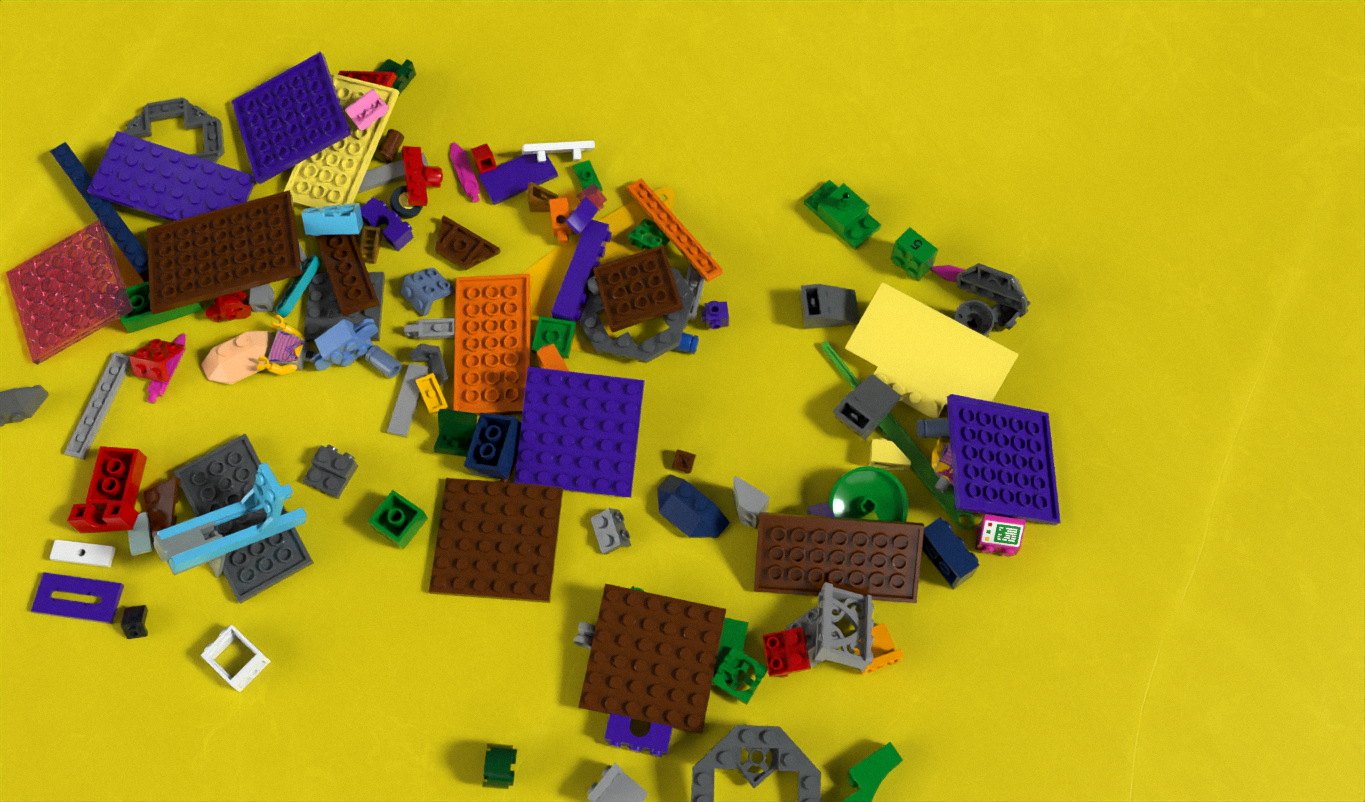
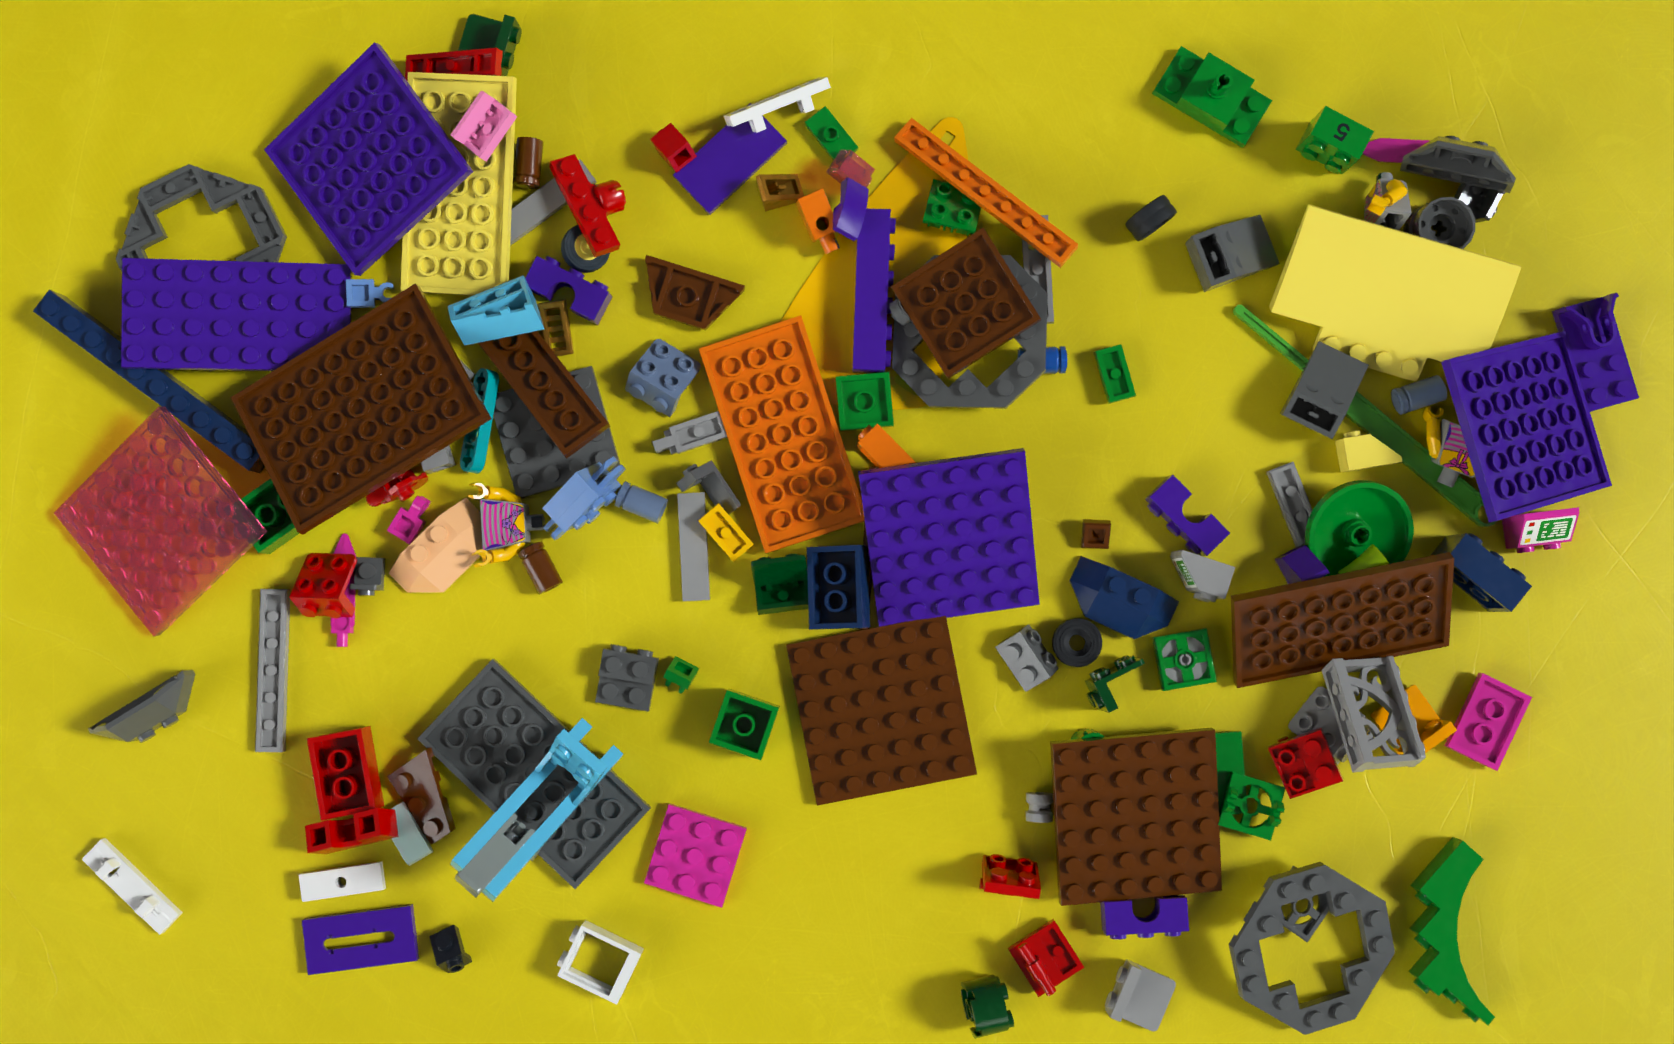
camera: 15 degrees left, 20 degrees up
(187, 362) = (369, 575): none -> dark grey bracket
(227, 333) = (408, 523): none -> dark pink plate
(255, 192) = (363, 293): none -> medium blue plate
(300, 385) = (540, 567): none -> reddish brown piece
(331, 604) = (695, 855): none -> dark pink plate
(368, 477) = (680, 673): none -> green tile
(464, 172) = (649, 172): dark pink piece -> none
(546, 679) = (1010, 876): none -> red plate
(556, 746) = (1046, 958): none -> red plate
(652, 540) = (1092, 640): none -> black tyre
(660, 552) = (1100, 694): none -> dark green bracket
(715, 314) = (1088, 304): dark purple brick -> none
(721, 561) = (1184, 659): none -> green piece
(728, 362) = (1114, 374): none -> green plate
(740, 451) = (1168, 502): none -> dark purple arch
(779, 271) = (1150, 218): none -> black tyre
(828, 471) = (1291, 499): none -> light grey tile
(932, 664) = (1488, 721): none -> dark pink plate
(939, 295) = (1388, 202): none -> torso
(1069, 434) = (1598, 351): none -> dark purple plate

